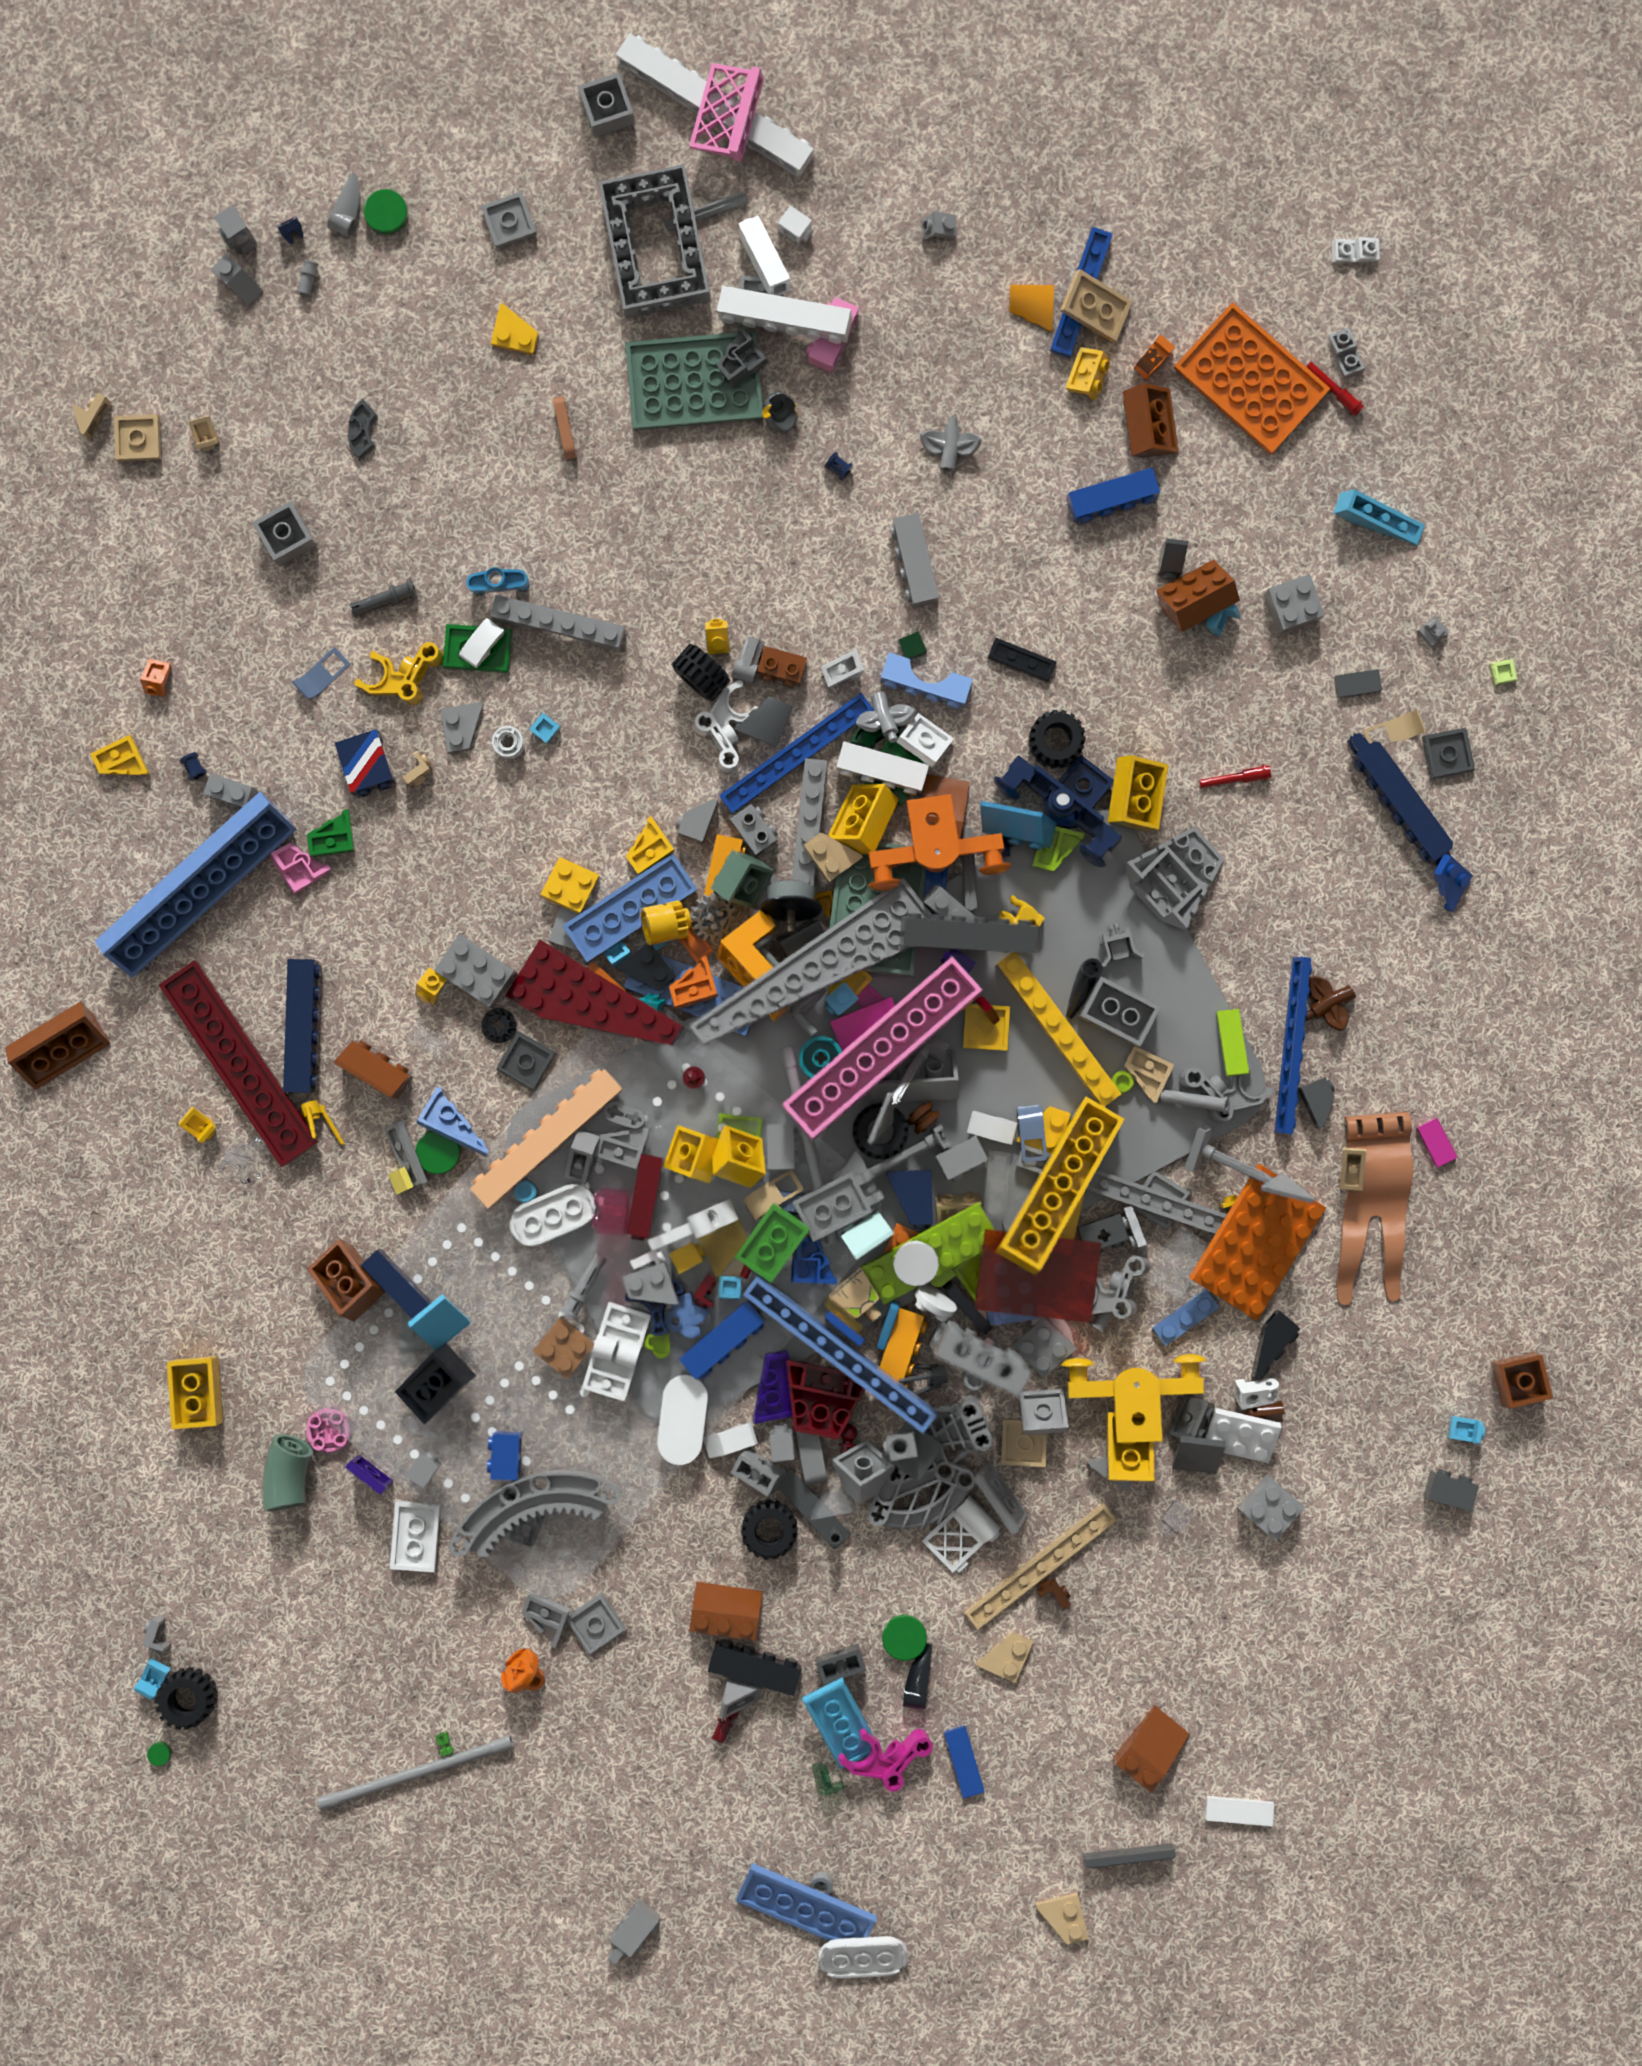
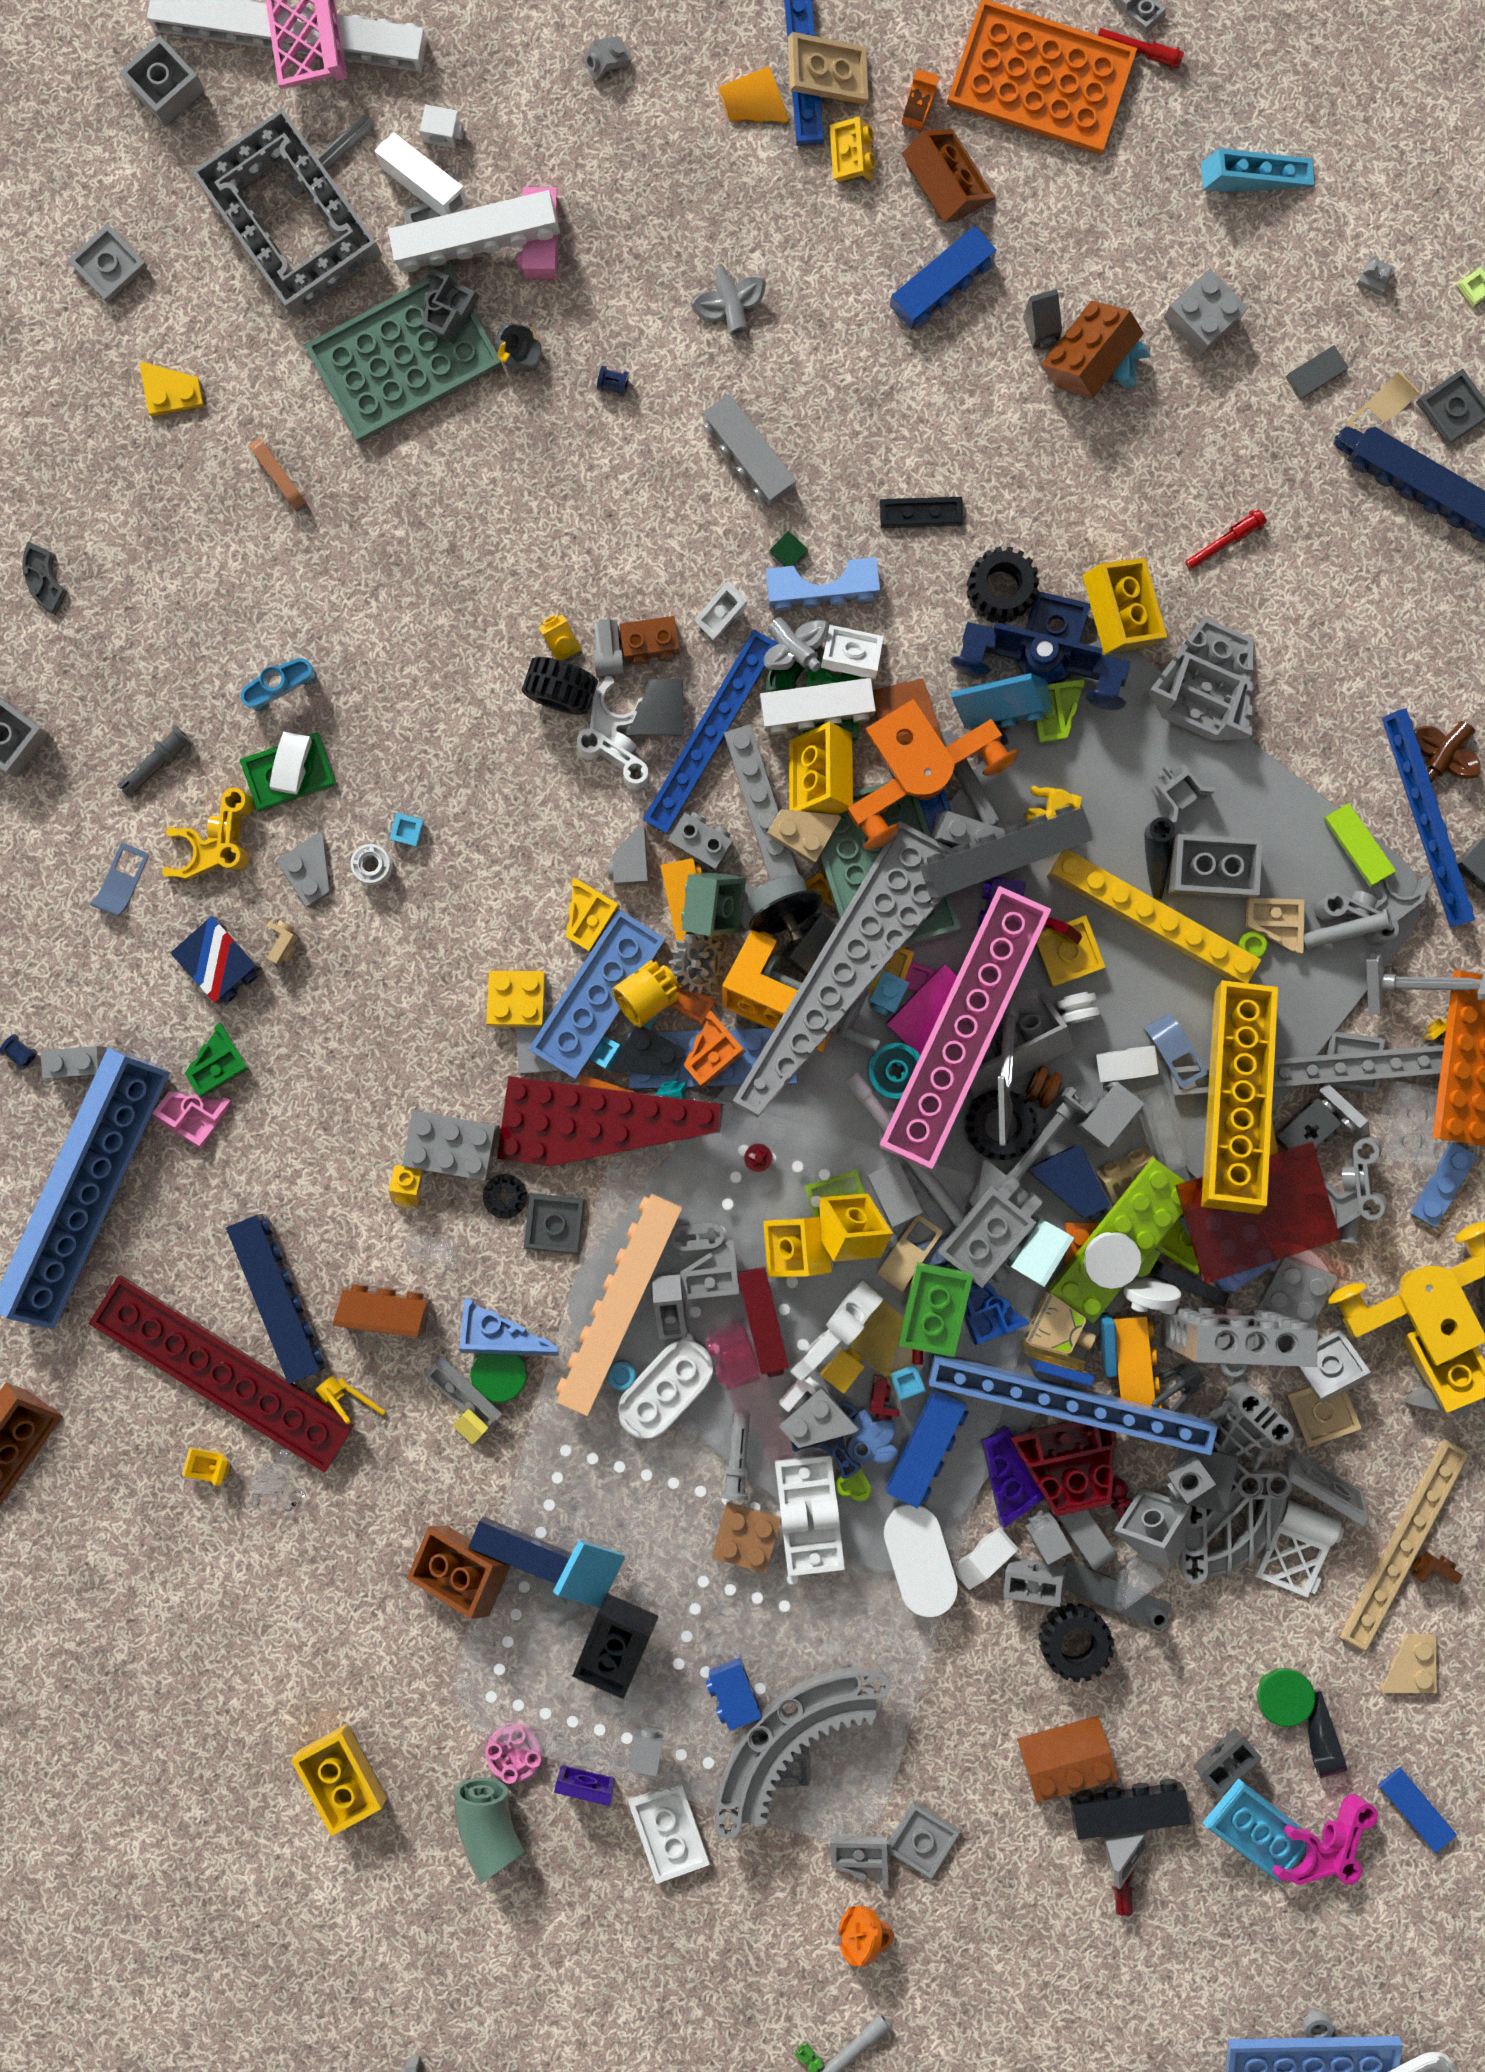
camera: 25 degrees left, 0 degrees up
(575, 626) = (340, 705): light grey arch -> none
(823, 1781) = (1268, 1909): clear green tile -> none
(974, 1071) = (1078, 1007): none -> white wheel
(1054, 1125) = (1198, 1029): yellow wing -> none

